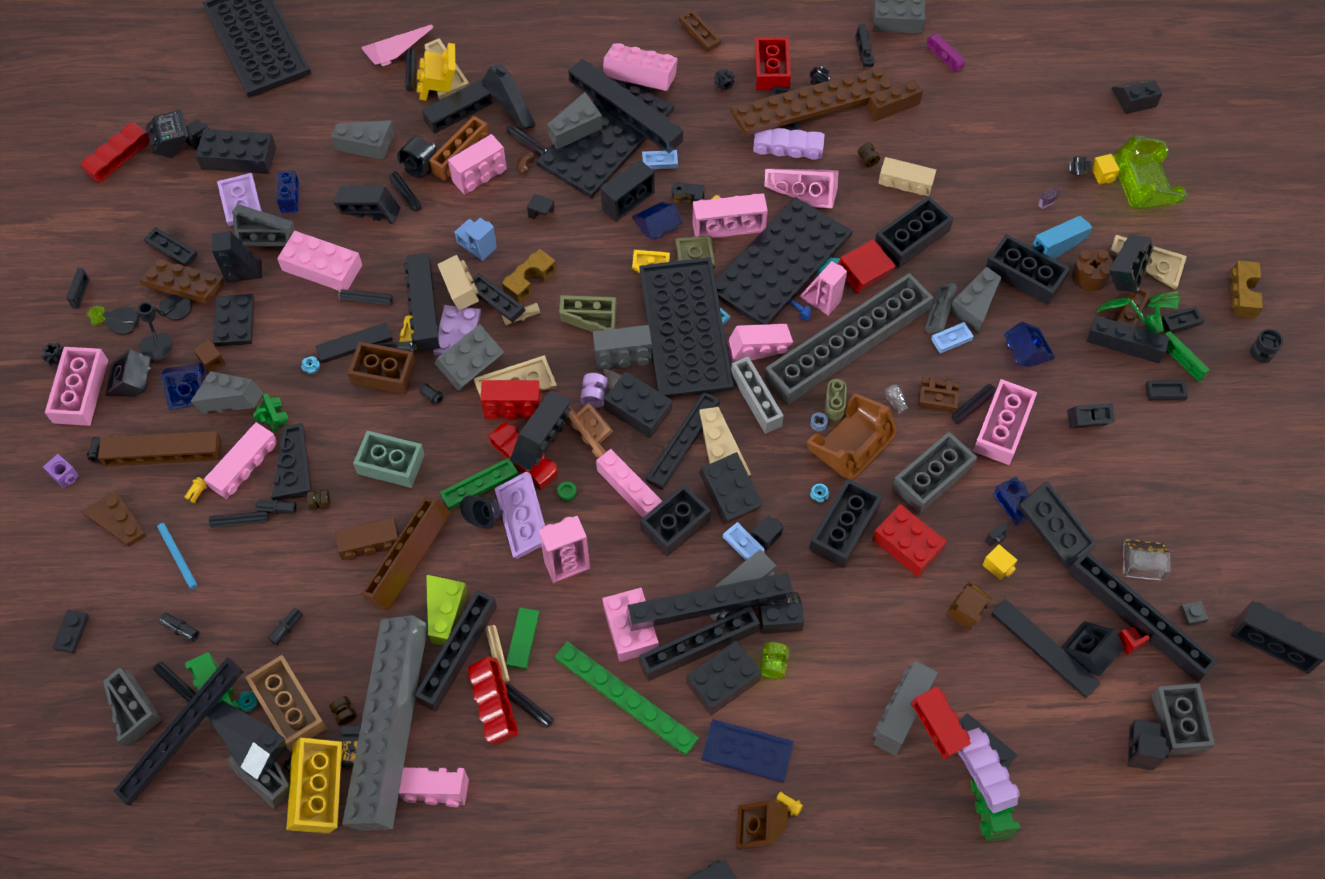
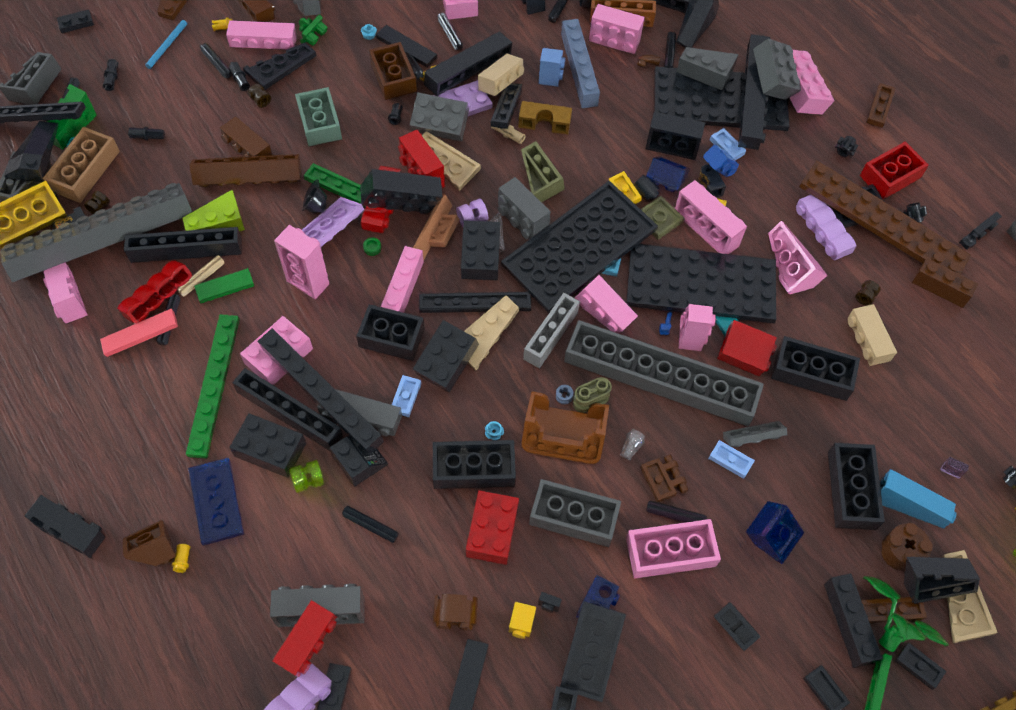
camera: 55 degrees right, 0 degrees up
(501, 217) = (580, 63): none -> sand blue brick
(528, 737) = (138, 332): none -> coral tile
(540, 205) = (613, 88): black panel -> none
(624, 74) = (777, 69): none -> dark grey brick
(662, 243) = (647, 188): none -> black brick
(679, 173) = (721, 161): none -> blue brick
(768, 532) = (427, 408): black brick -> none
(847, 634) = (370, 524): none -> black axle
(976, 299) = (788, 458): dark grey wedge -> none

